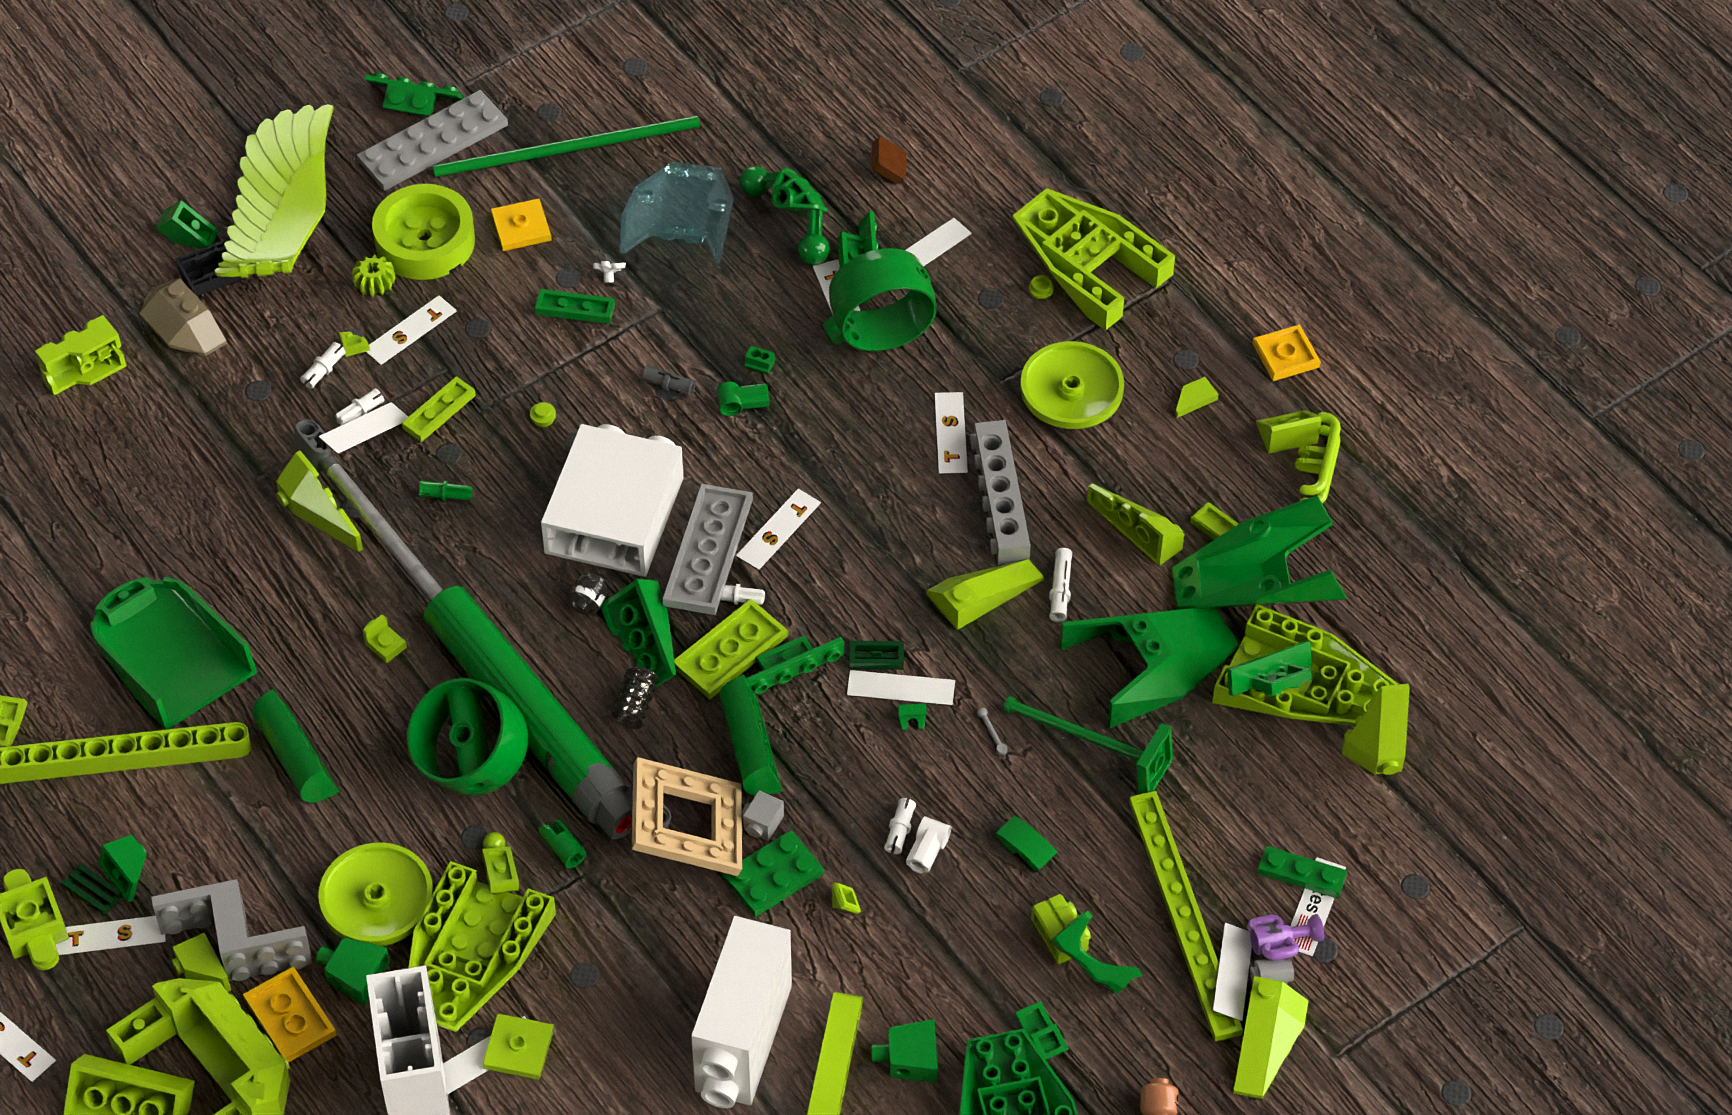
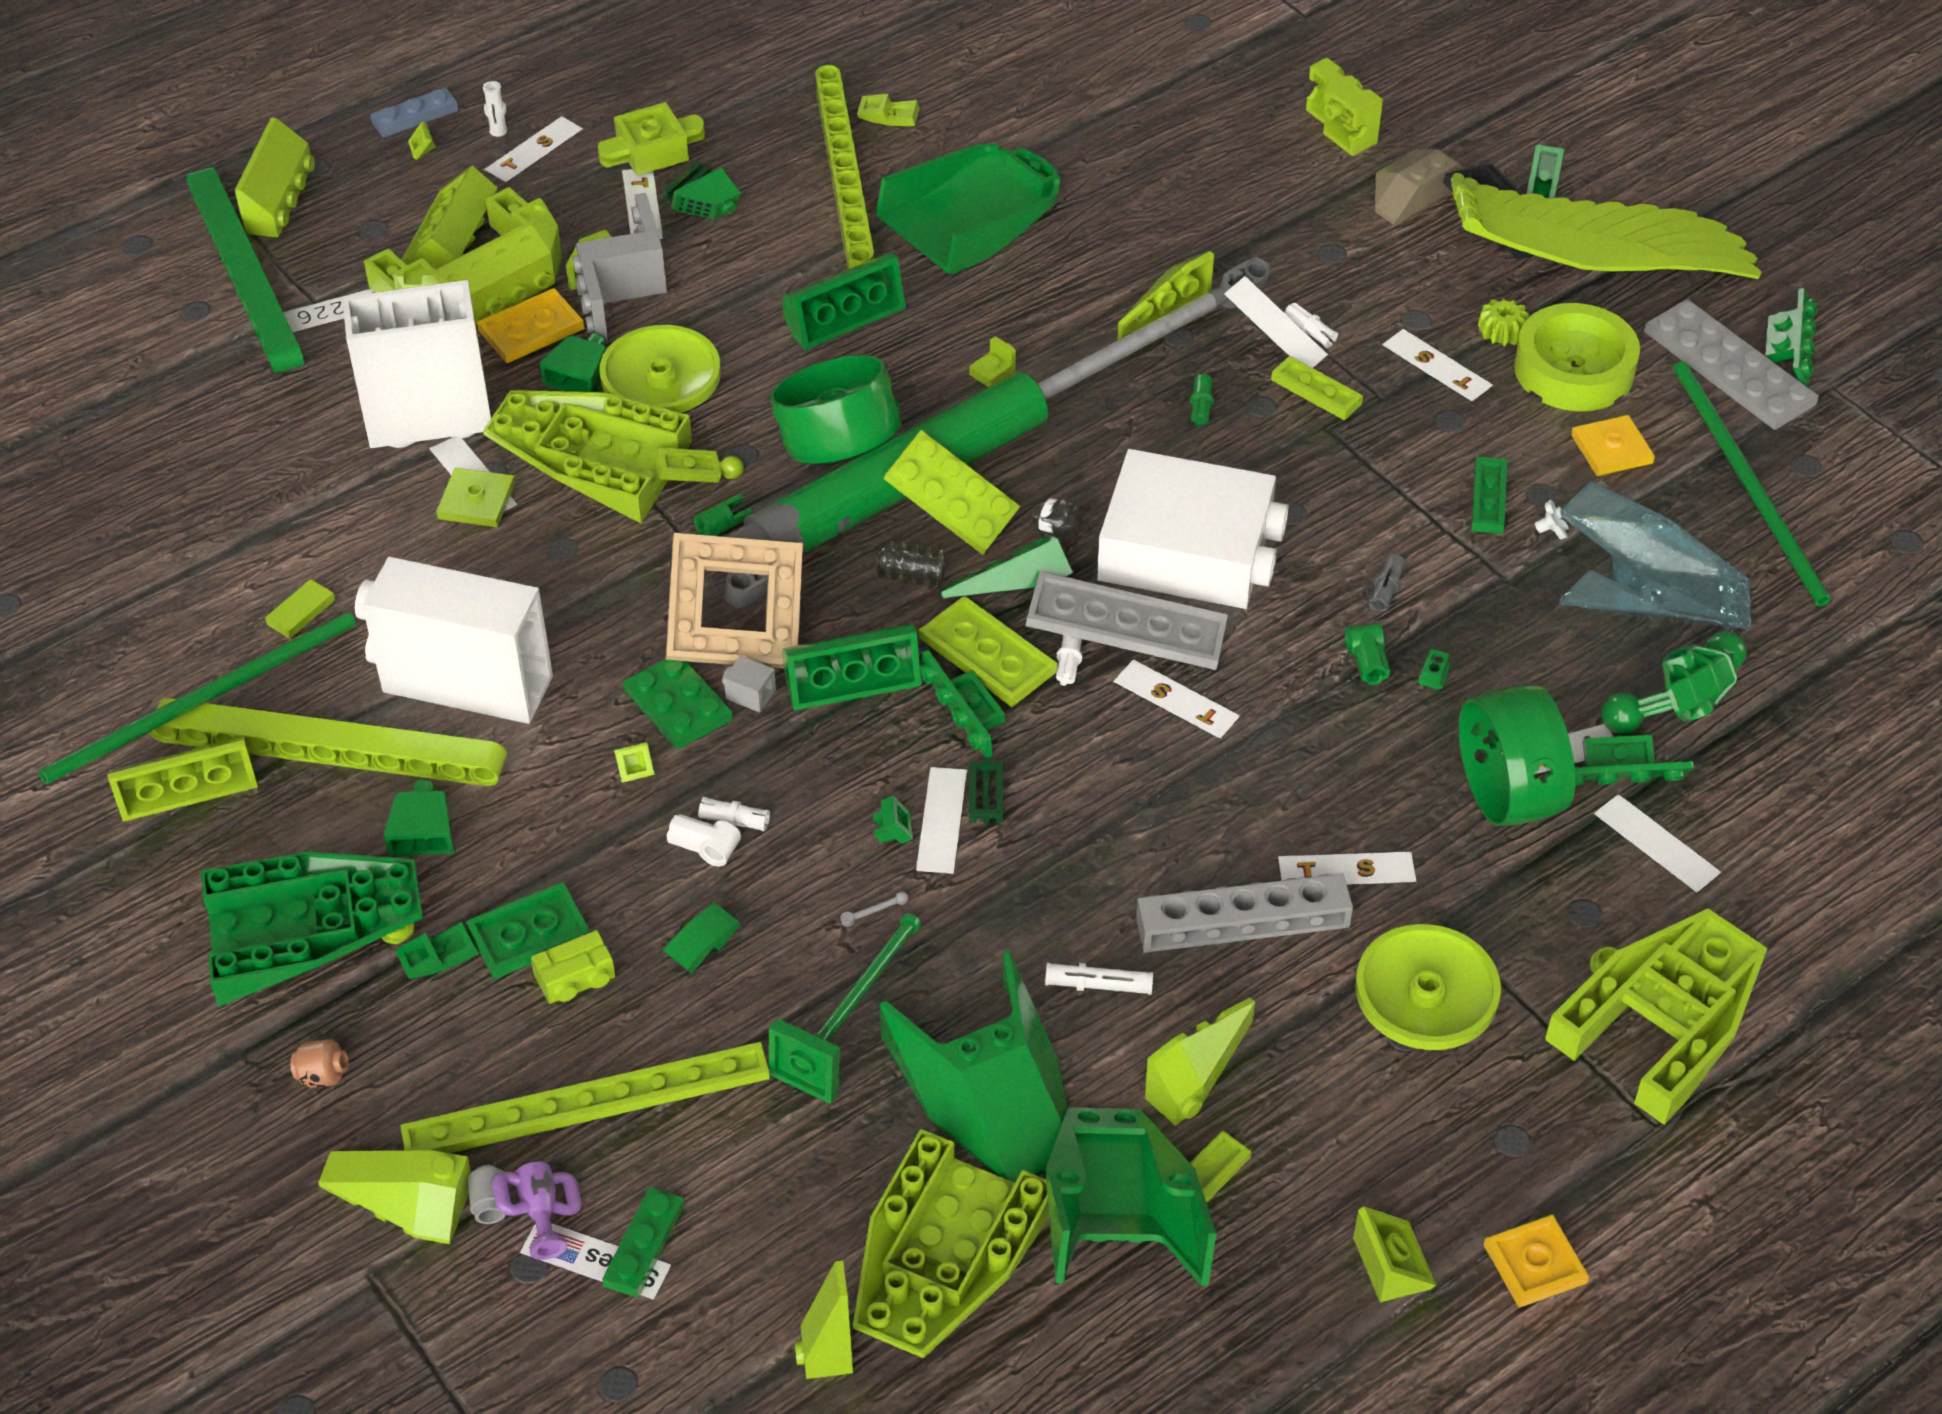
camera: 90 degrees right, 5 degrees down
(322, 365) = (1367, 293): white pin -> none
(353, 343) = (1405, 316): lime tile -> none
(543, 414) = (1322, 476): lime plate -> none
(563, 660) = (951, 492): none -> lime plate
(888, 160) = (1794, 787): reddish brown piece -> none
(977, 593) = (1088, 895): lime wedge -> none
(1021, 964) = (525, 928): none -> green plate
(1110, 976) = (498, 1001): green animal -> none
(1195, 396) = (1440, 1144): lime tile -> none
(1233, 972) = (491, 1146): white sticker -> none
(1273, 671) = (928, 1188): green bracket -> none
(1320, 459) = (1332, 1299): lime piece -> none

